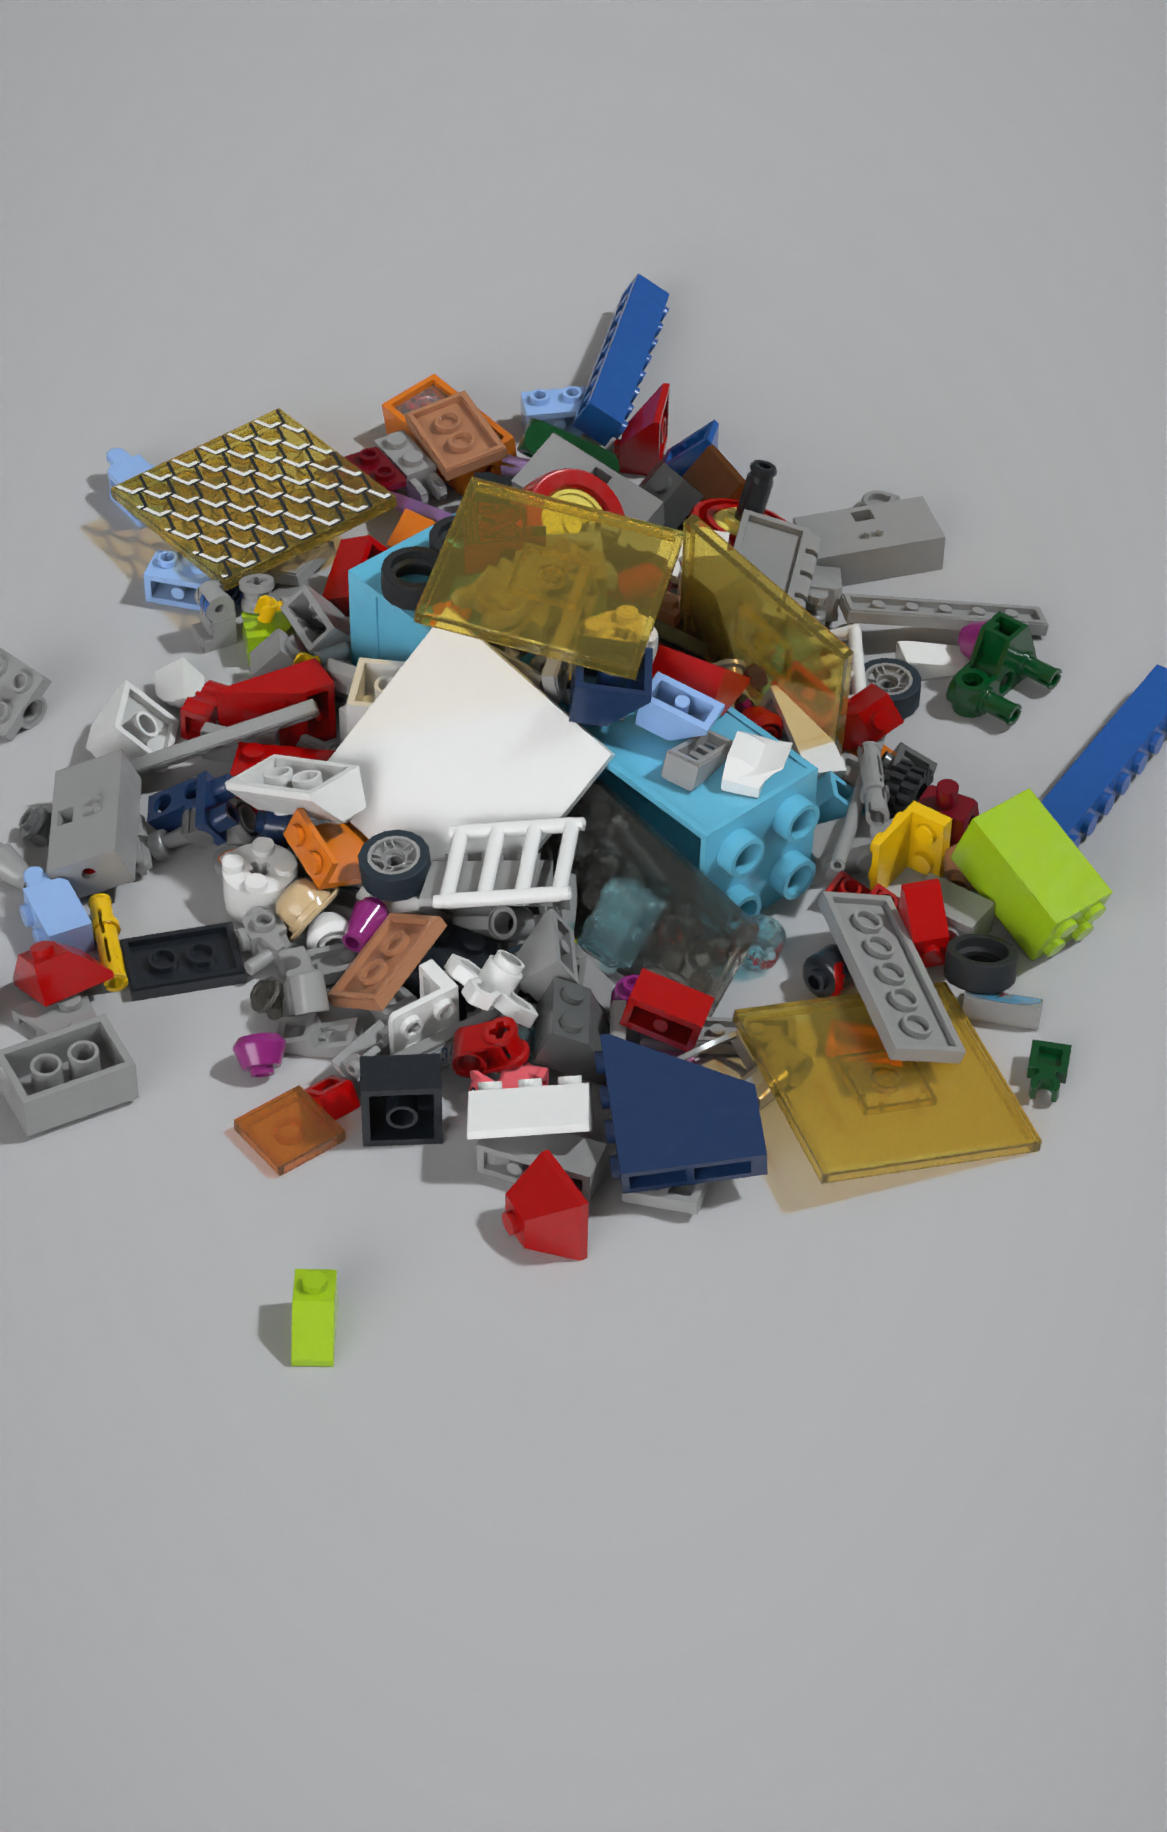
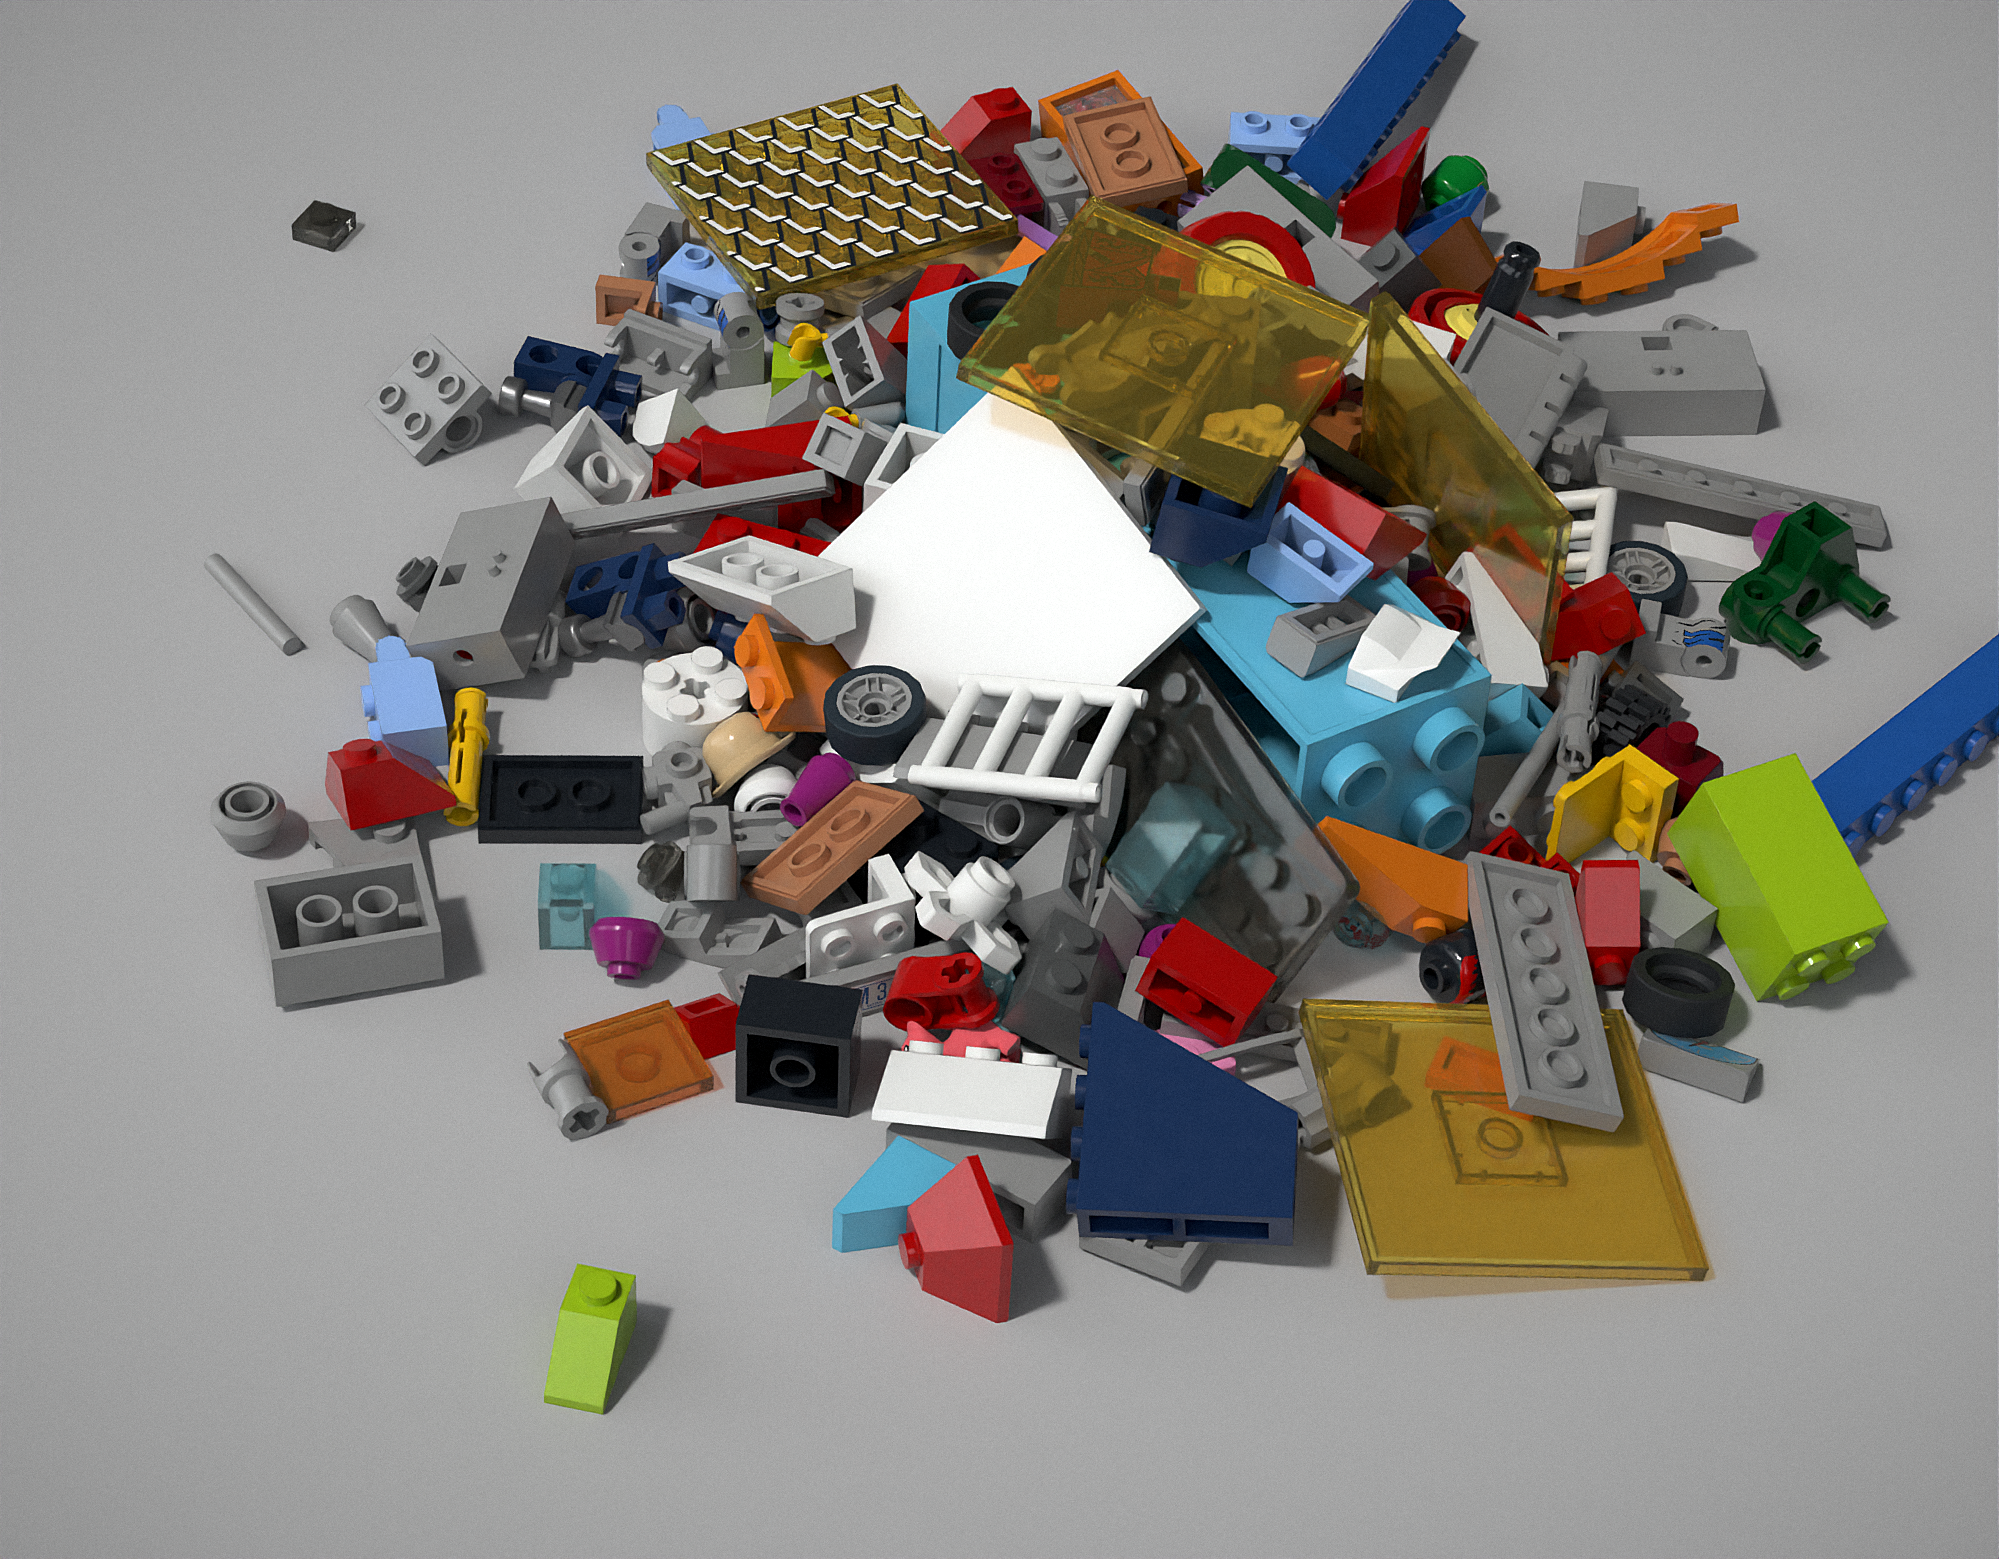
camera: 10 degrees right, 0 degrees up
(101, 666) = (564, 379): none -> dark blue hips
(126, 553) = (651, 240): none -> light grey leg
(126, 601) = (619, 294): none -> nougat bracket
(158, 635) = (662, 354): none -> light grey hinge
(211, 1033) = (567, 905): none -> clear light blue slope
(248, 1157) = (568, 1090): none -> light grey piece
(322, 683) = (844, 449): none -> light grey panel
(351, 427) = (989, 124): none -> red slope
(485, 1190) = (878, 1203): none -> medium azure slope
(689, 418) = (1451, 179): none -> green head
(786, 921) = (1407, 885): none -> orange slope
(804, 433) = (1606, 222): none -> light grey slope
(836, 456) = (1641, 263): none -> orange piece
(926, 725) = (1678, 643): none -> light grey leg
(1048, 1067) = (1743, 1160): dark green plate -> none

